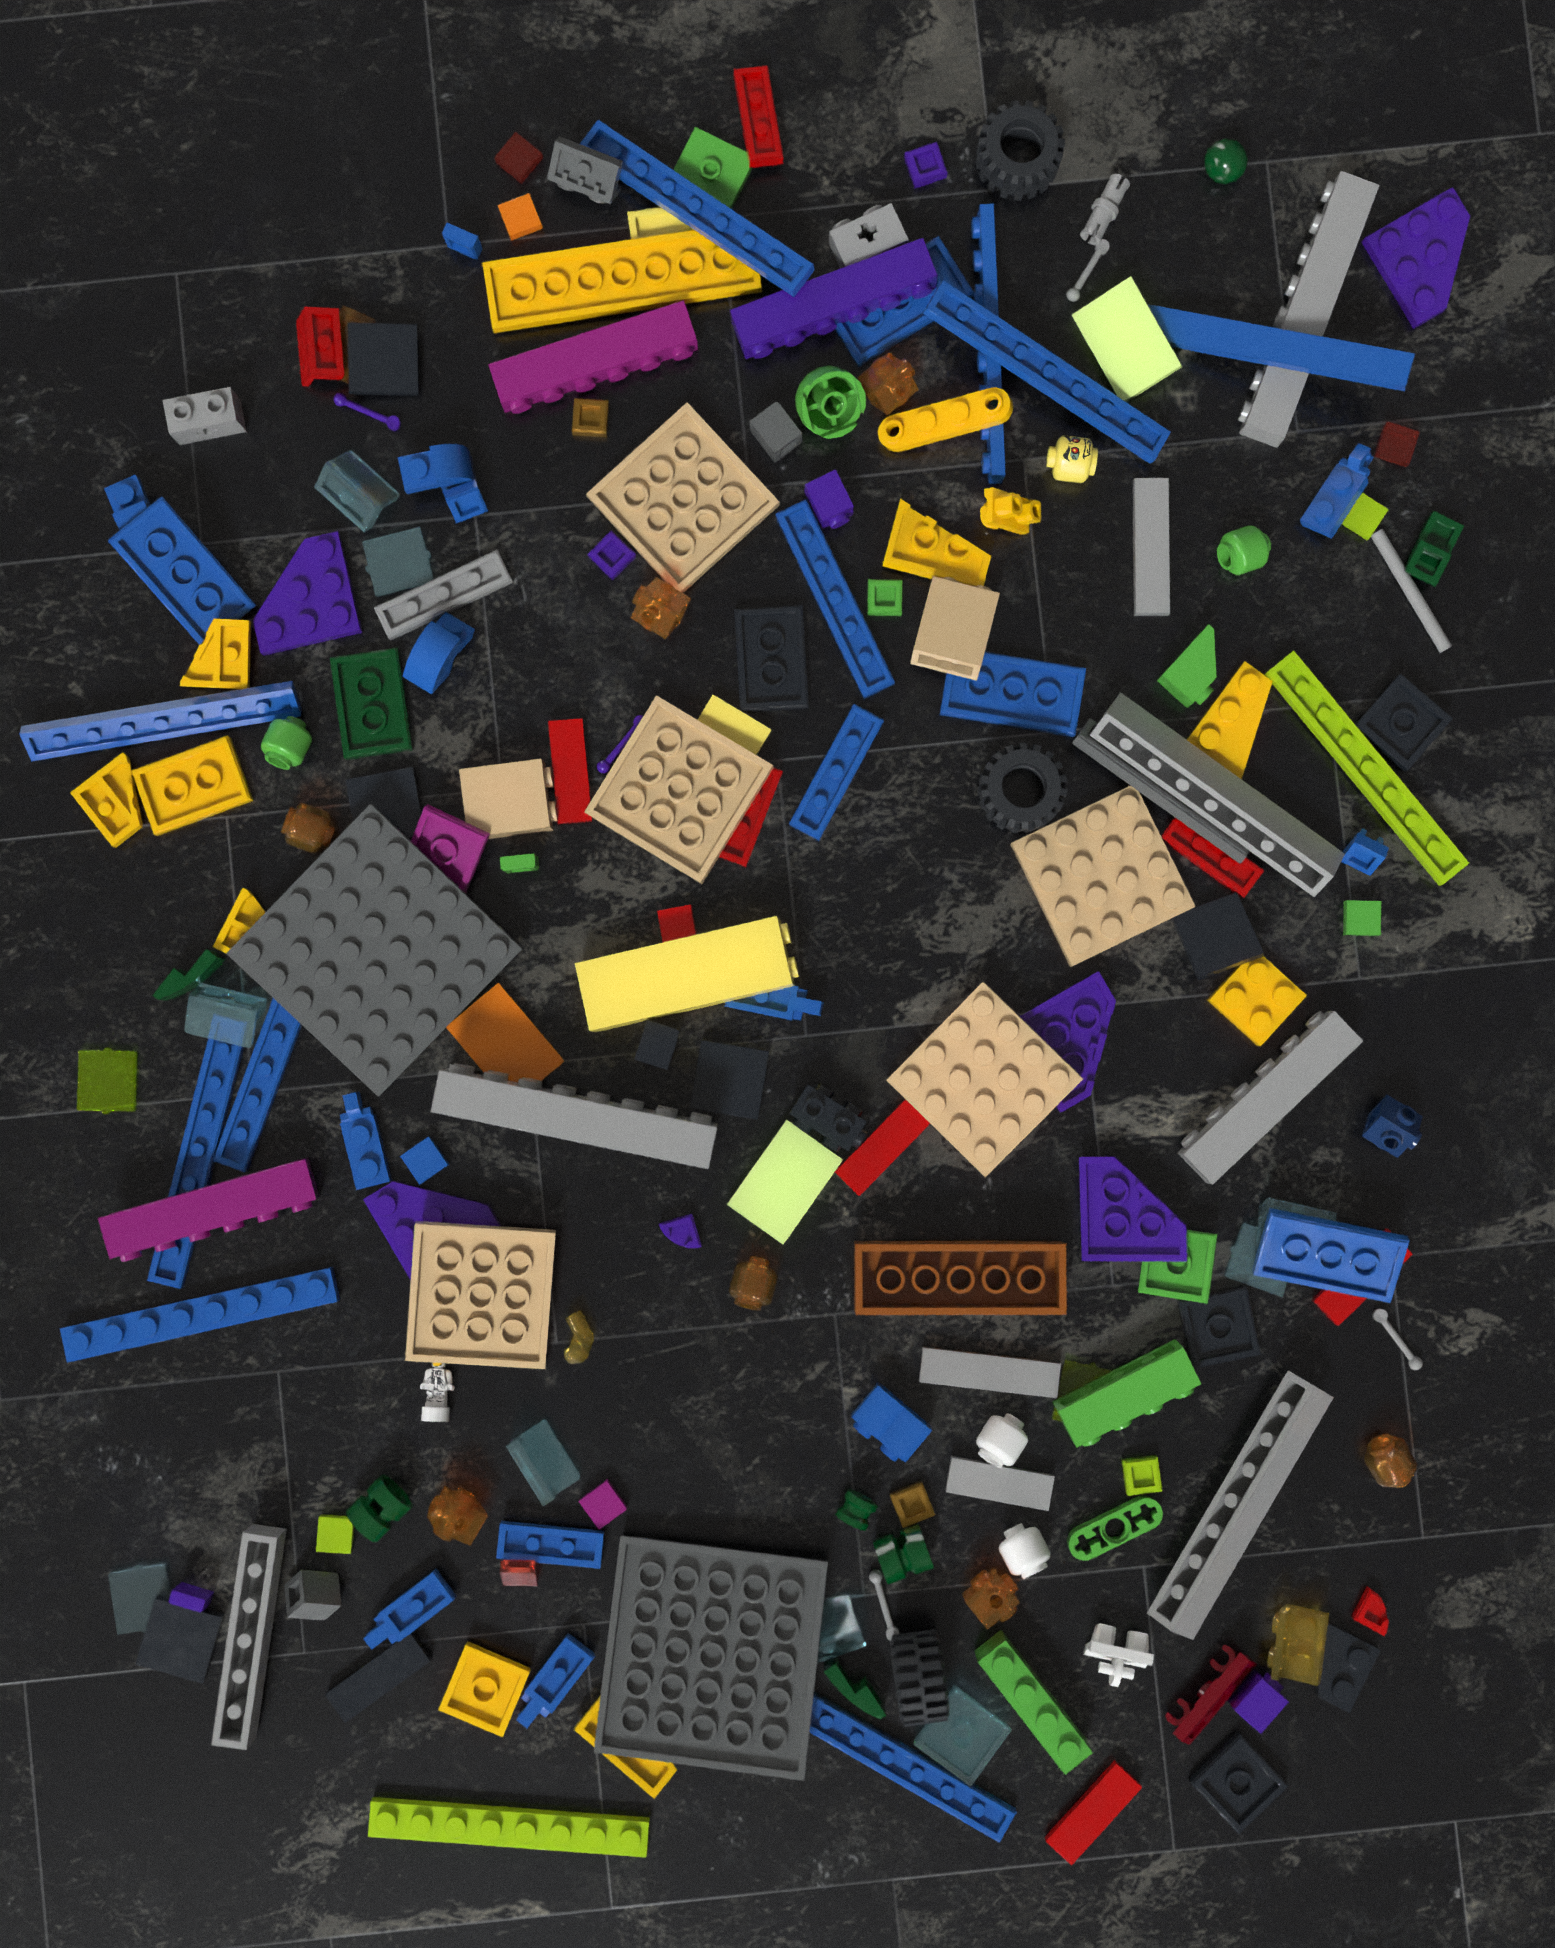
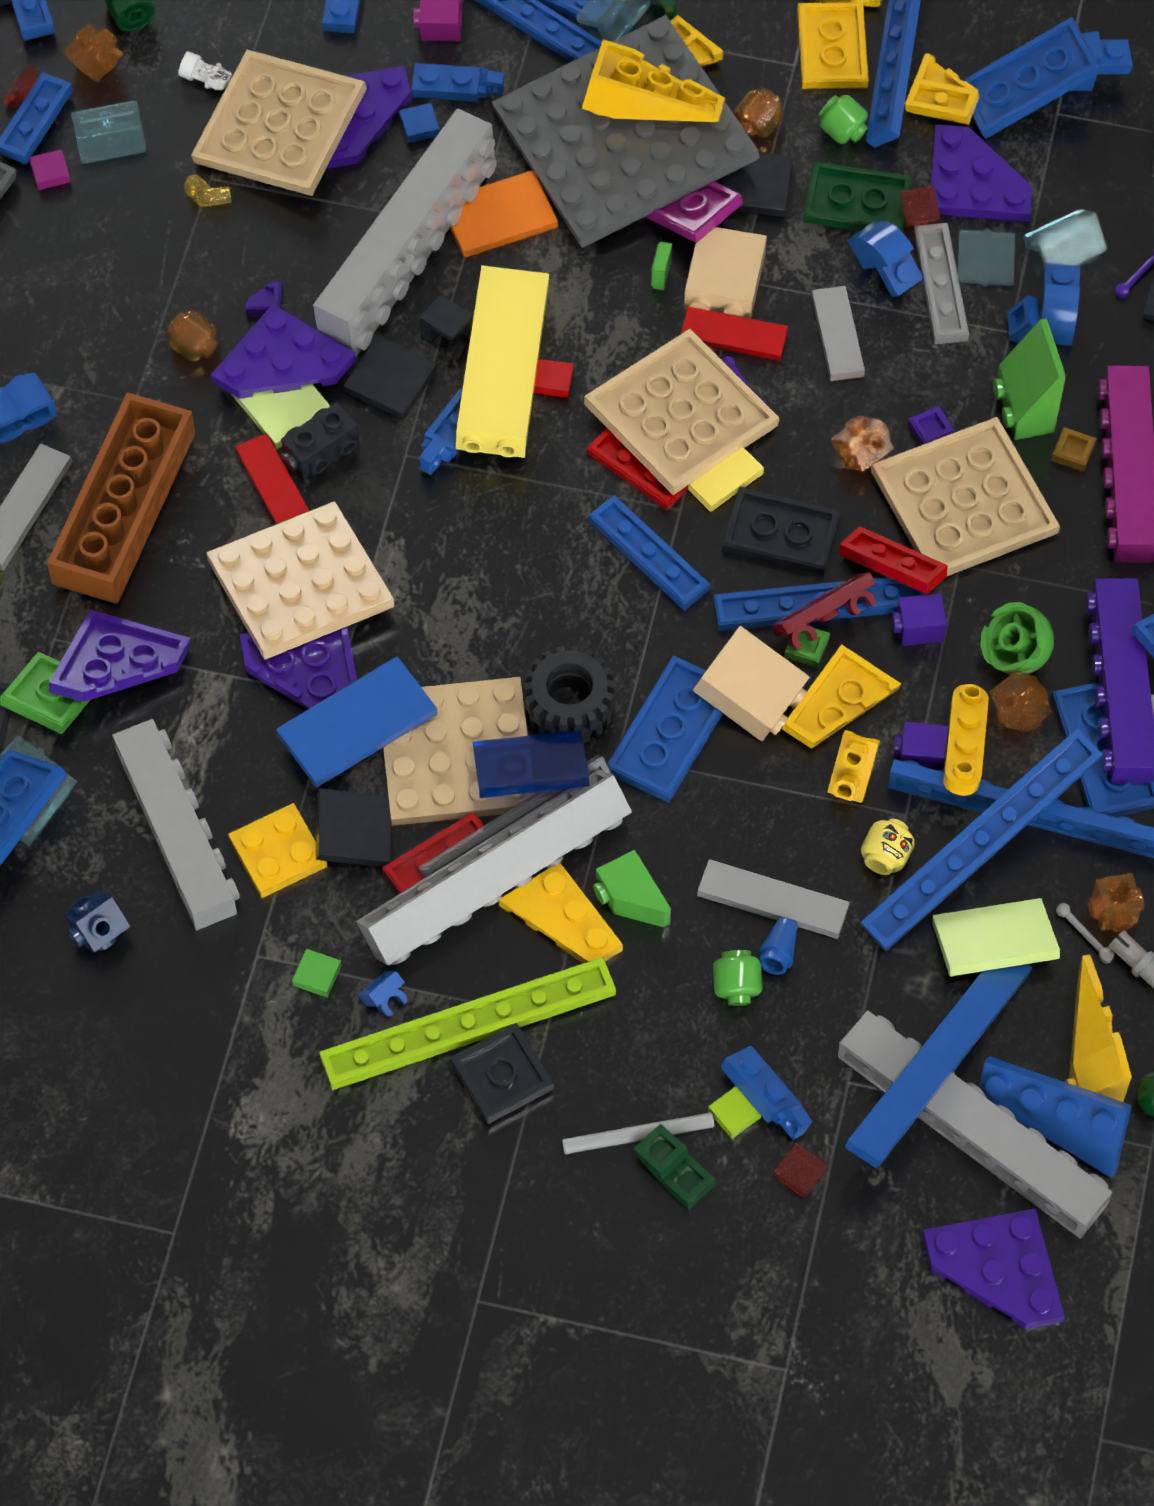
camera: 105 degrees right, 25 degrees down
(339, 942) = (634, 89): none -> yellow wedge
(369, 636) = (919, 206): none -> clear red plate
(535, 674) = (838, 333): none -> light grey tile
(551, 464) = (1031, 384): none -> bright green slope
(749, 1188) = (281, 357): none -> dark purple plate
(775, 431) = (1003, 588): dark grey panel -> none
(778, 541) = (893, 560): none -> red plate
(853, 587) = (825, 608): none -> dark red plate
(961, 459) = (922, 744): none -> dark purple brick
(1063, 234) = (1116, 902): none -> clear orange brick
(1113, 794) = (530, 764): none -> clear blue tile
(1118, 969) = (356, 721): none -> blue tile
(1199, 525) = (778, 948): none -> blue cone
(1223, 221) = (1096, 1053): none -> yellow wedge
(1278, 231) = (1063, 1113): none -> blue wing

